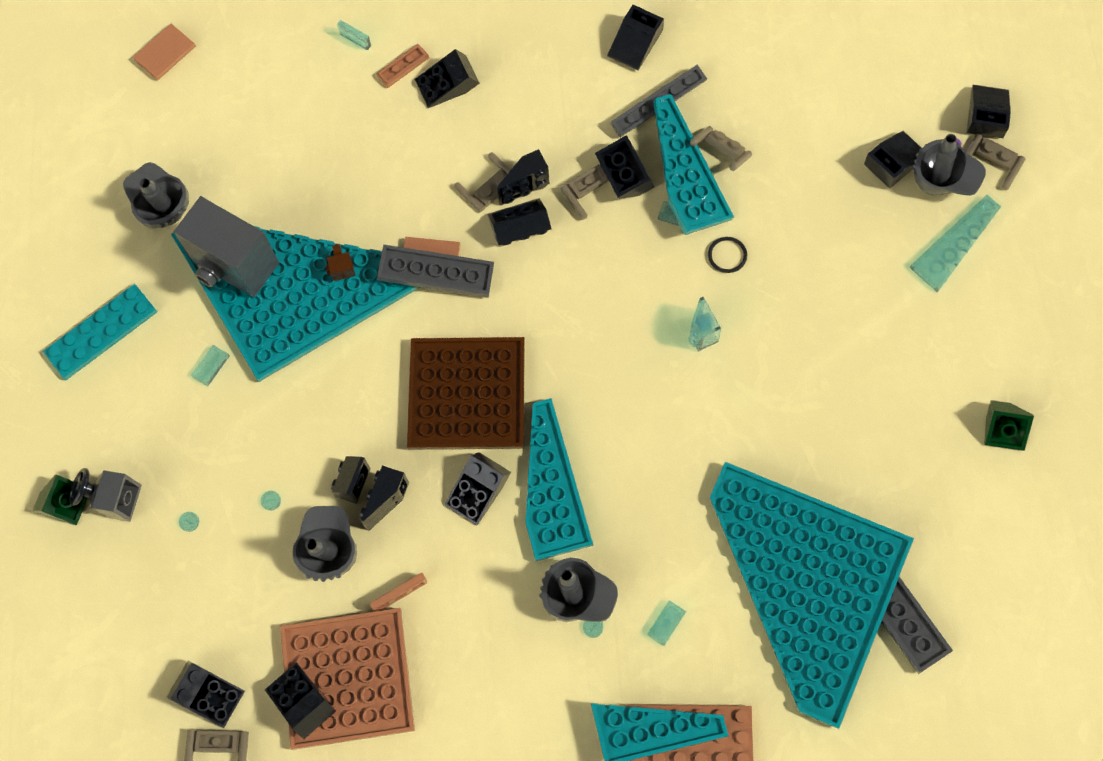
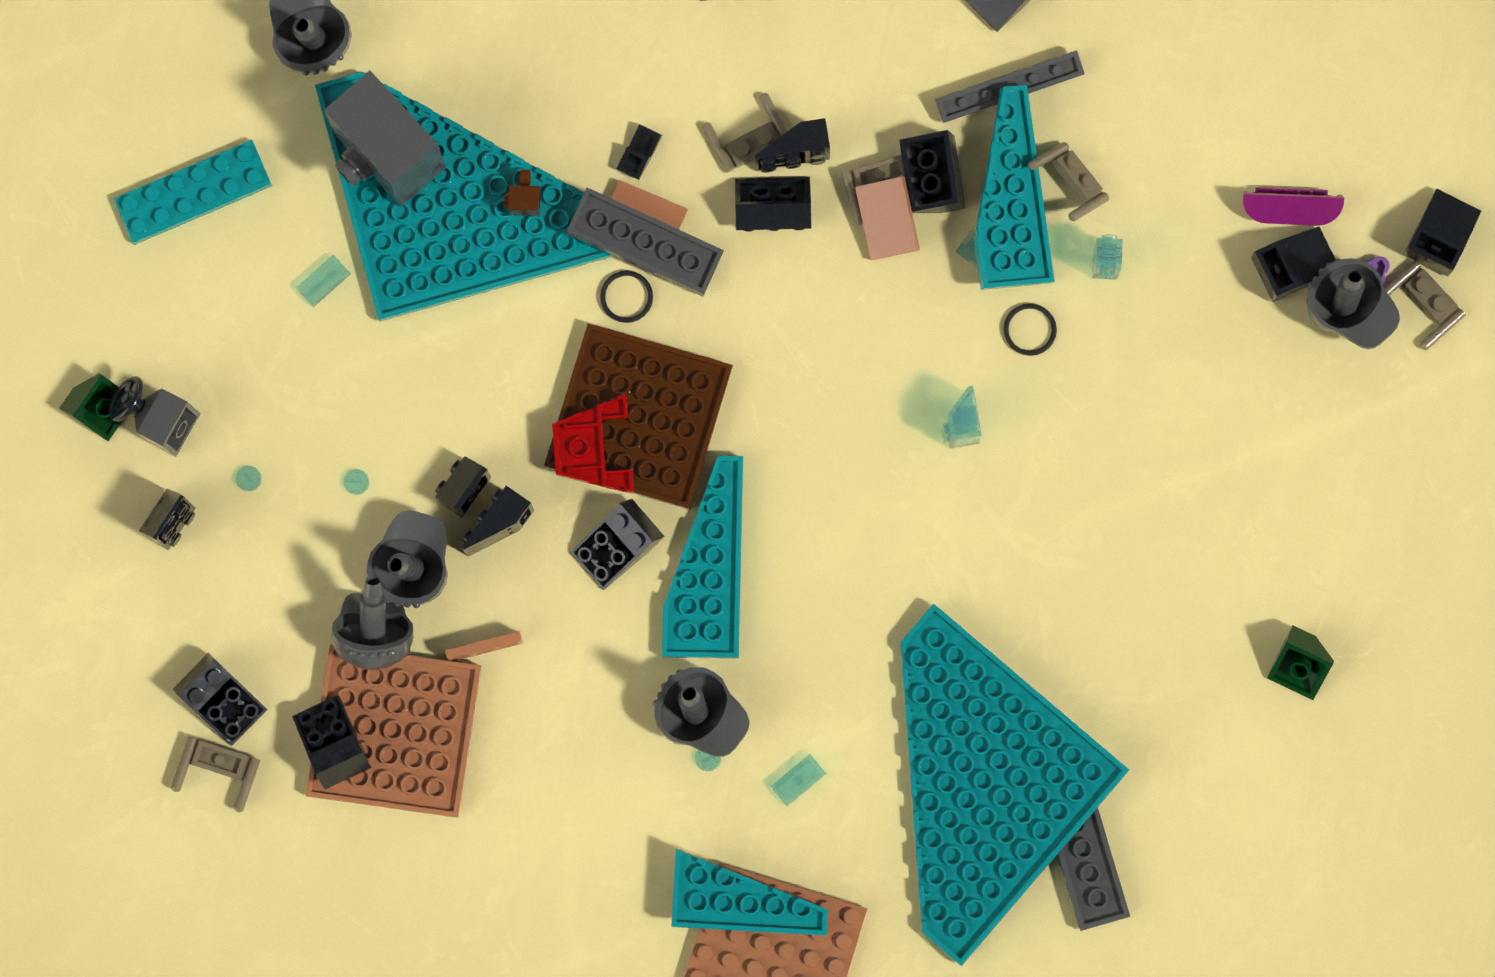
camera: 15 degrees right, 10 degrees up
(134, 567) = (168, 519): none -> black slope
(306, 604) = (370, 630): none -> dark grey piece
(414, 214) = (639, 152): none -> black slope
(431, 298) = (629, 319): none -> black tyre
(431, 427) = (581, 447): none -> red wing
(603, 206) = (887, 218): none -> nougat tile
(766, 188) = (1107, 257): none -> clear light blue brick
(881, 122) = (1292, 206): none -> magenta brick
(947, 252) = (1315, 412): clear light blue wing -> none

